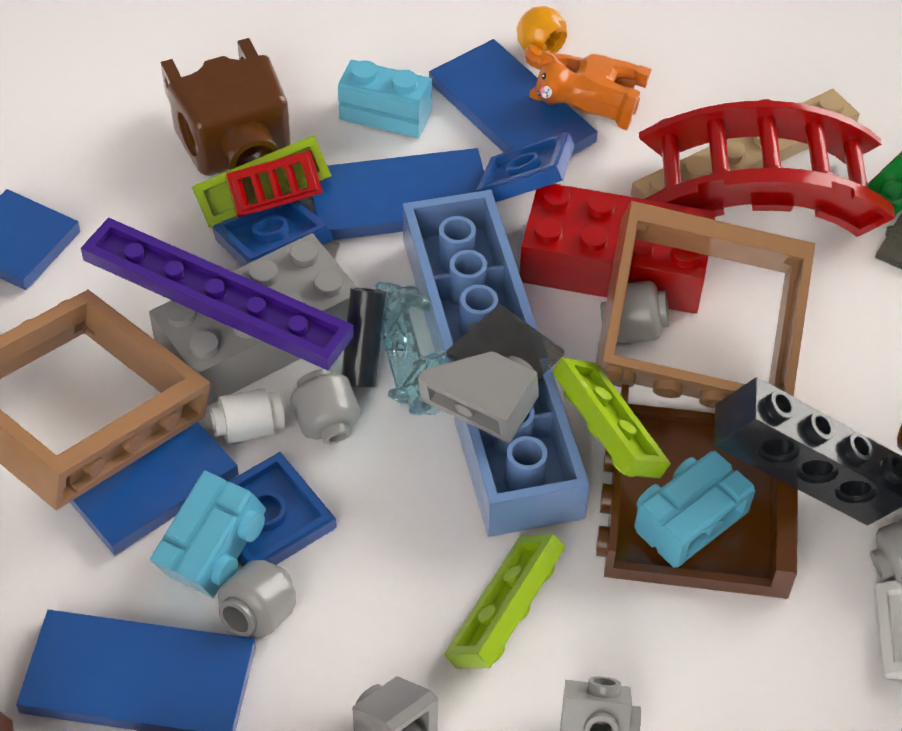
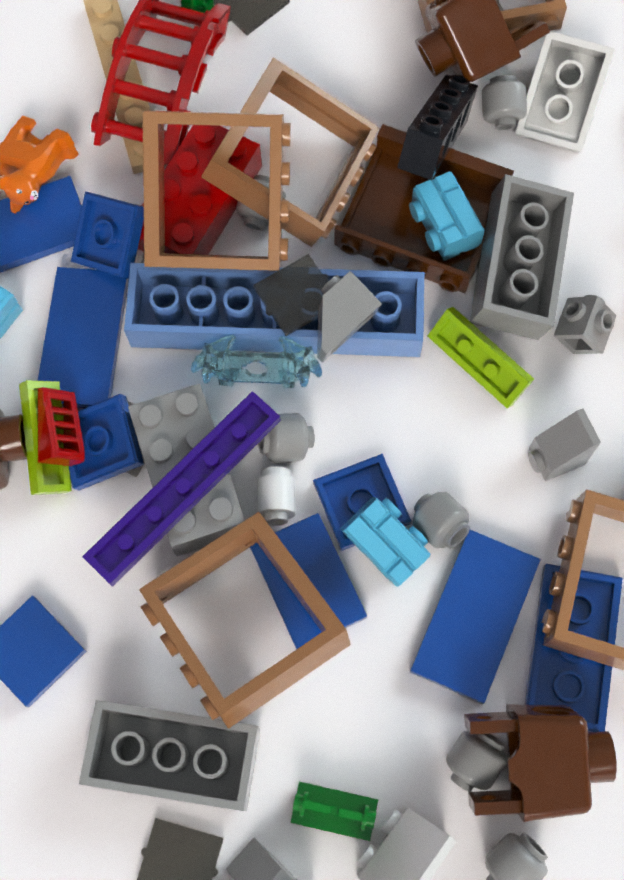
camera: 70 degrees left, 20 degrees up
(363, 351) = (229, 385): black piece -> none
(562, 168) = (154, 190): none -> medium nougat window
(610, 419) = (372, 242): lime plate -> none
(666, 608) = (522, 258): none -> light grey brick

